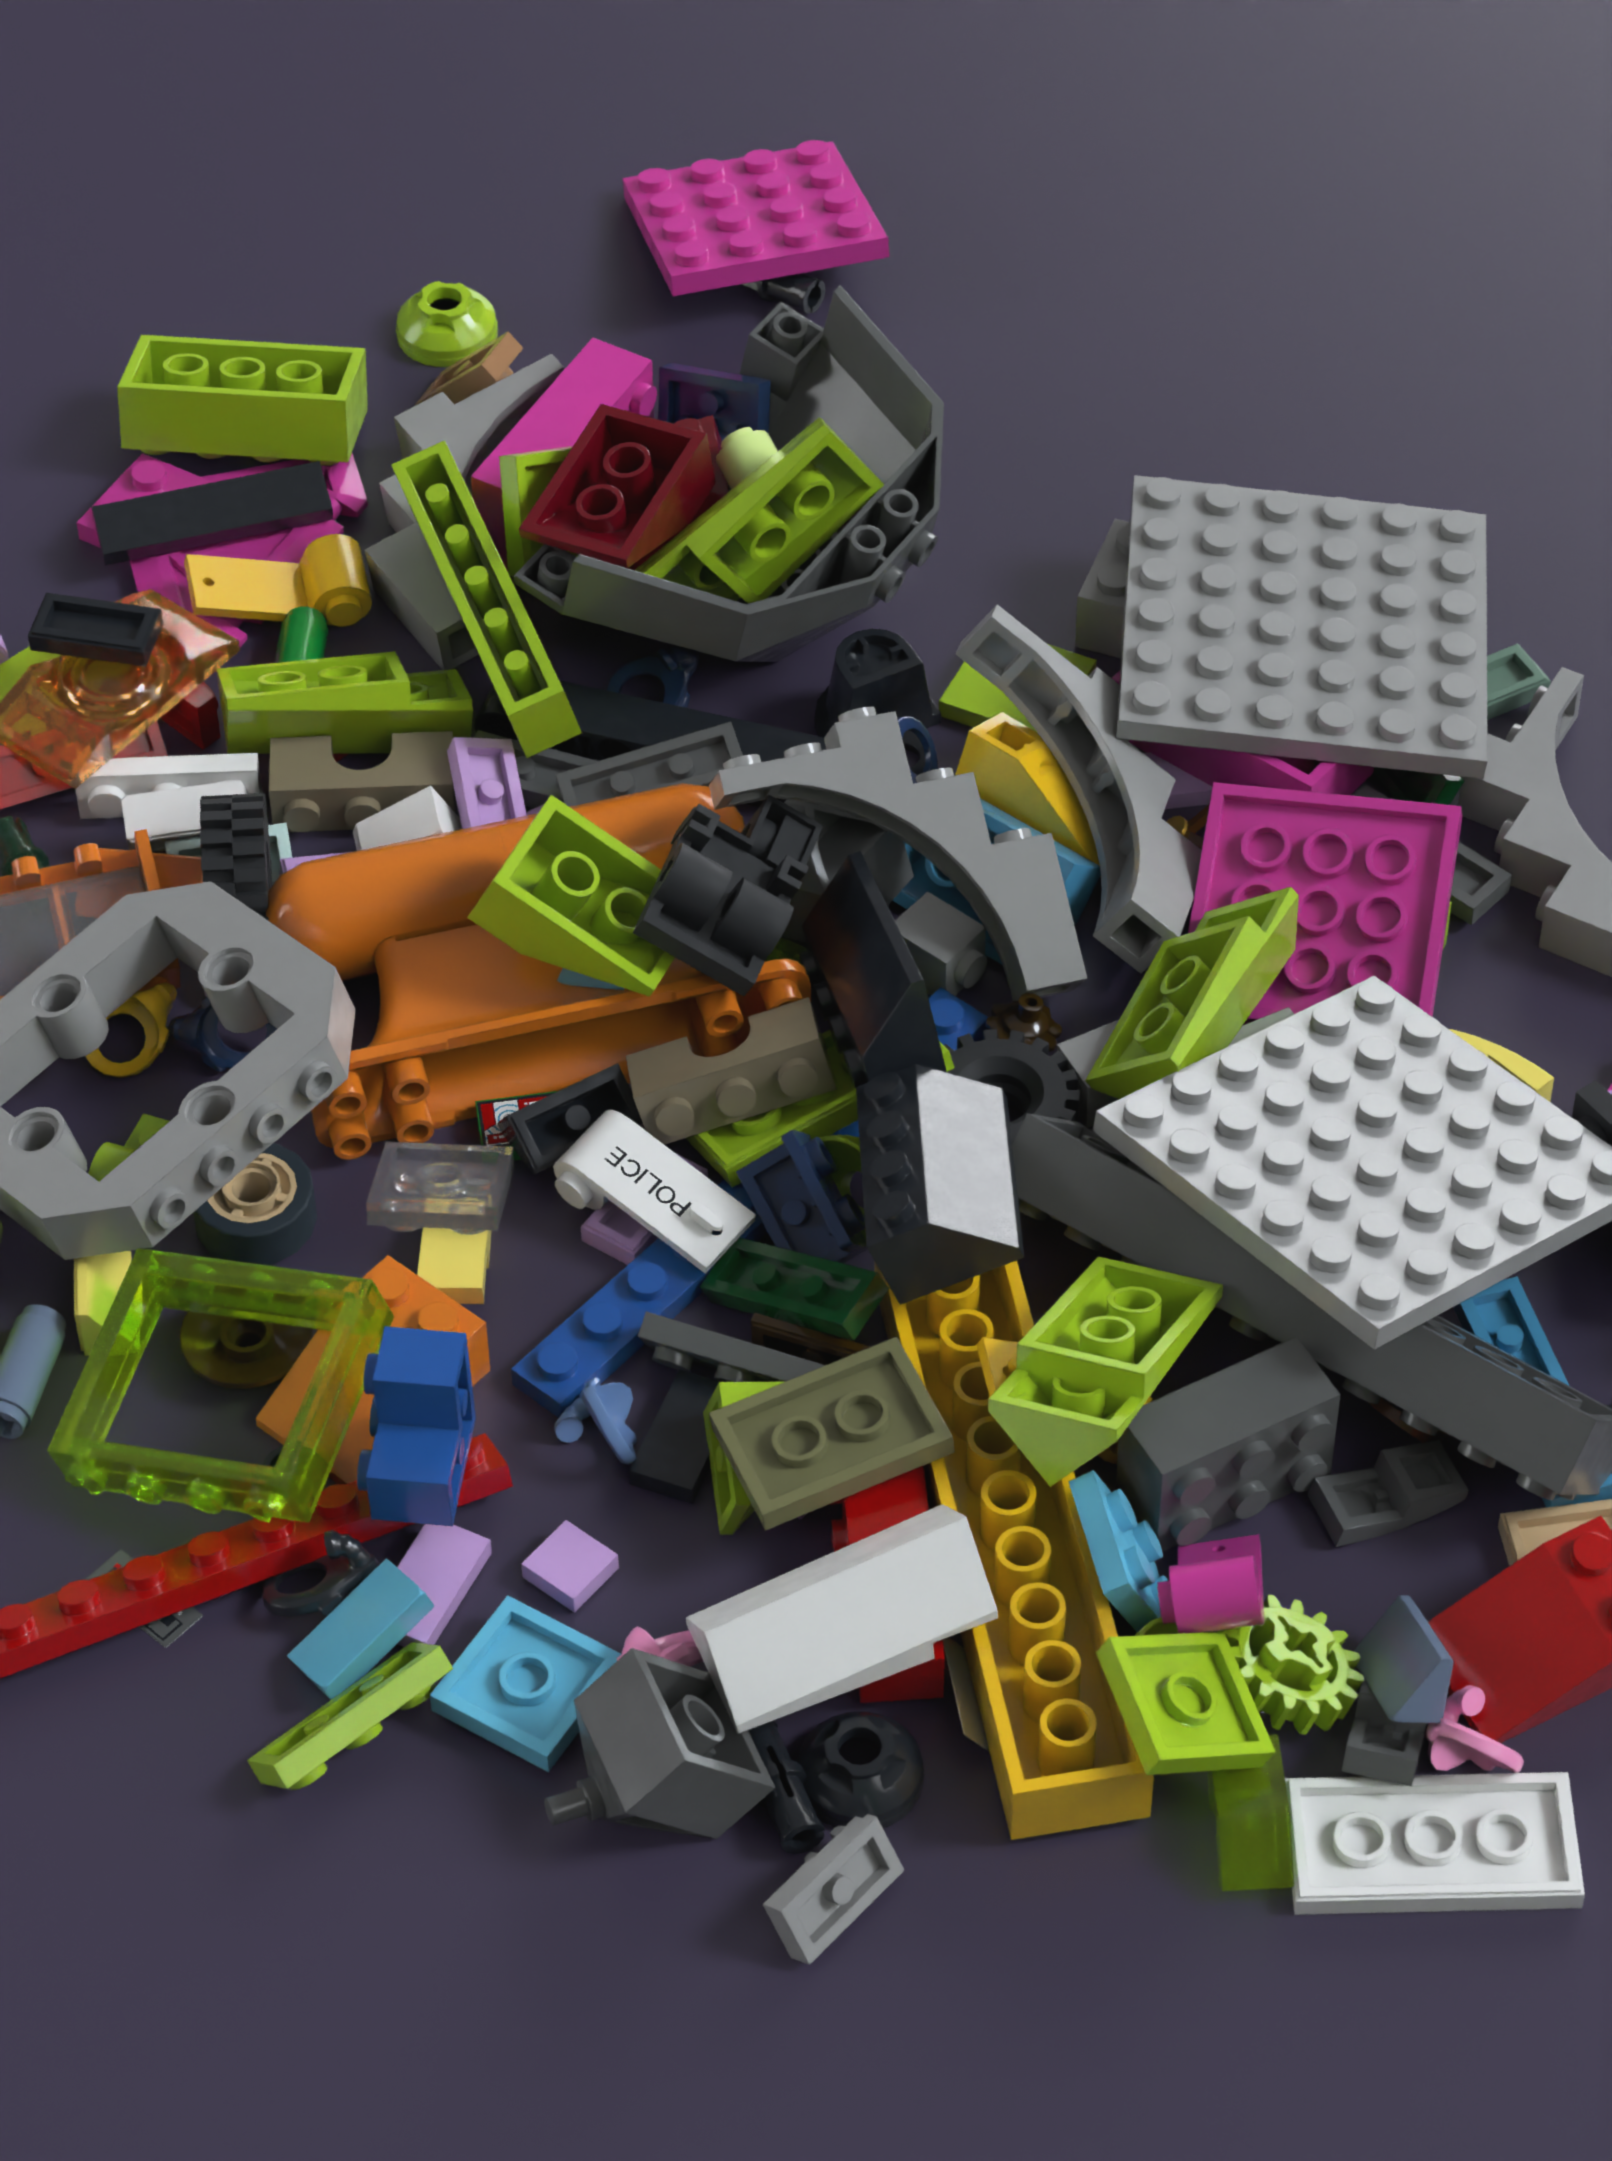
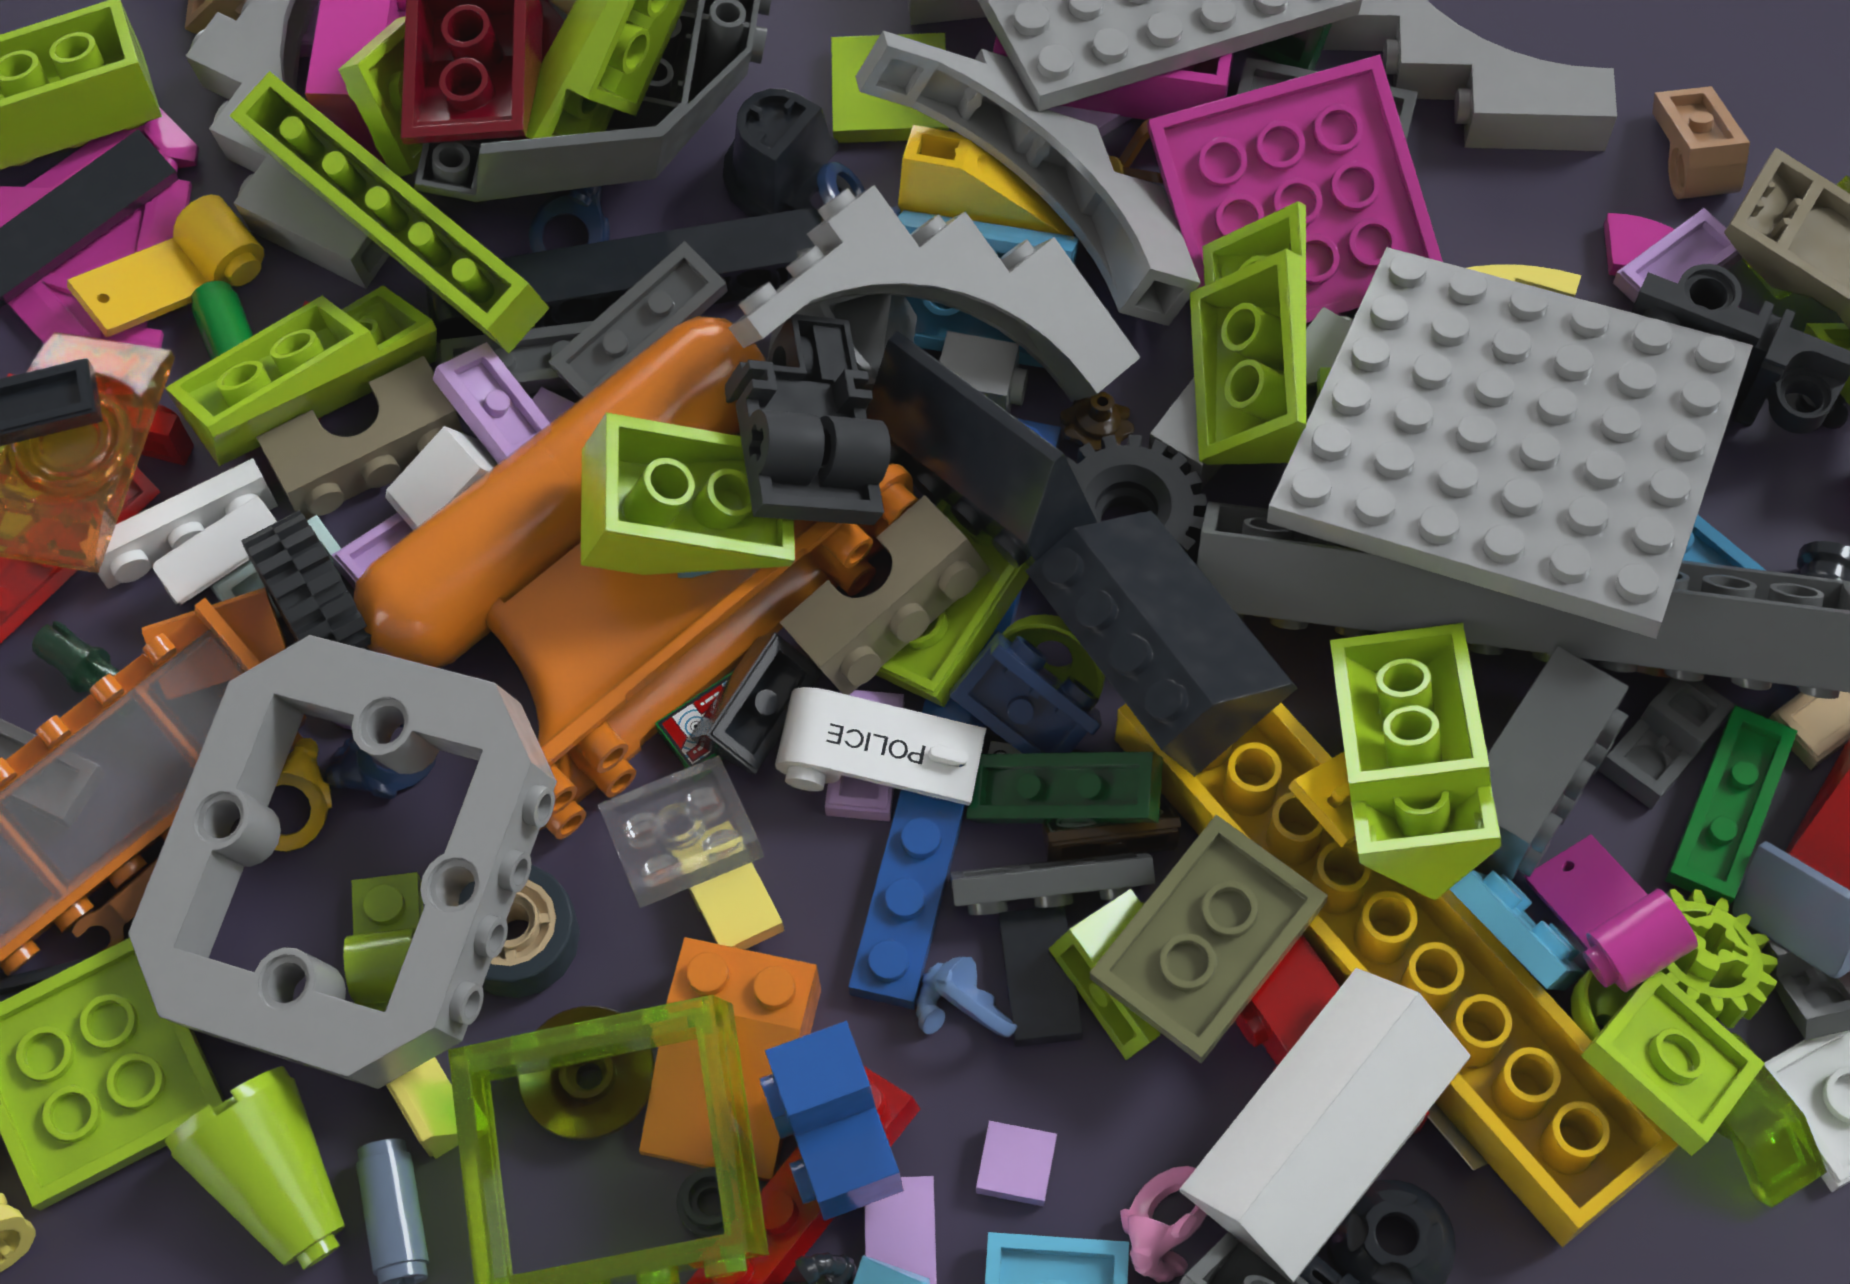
camera: 25 degrees left, 15 degrees up
(1411, 1562) = (1731, 805): none -> green plate

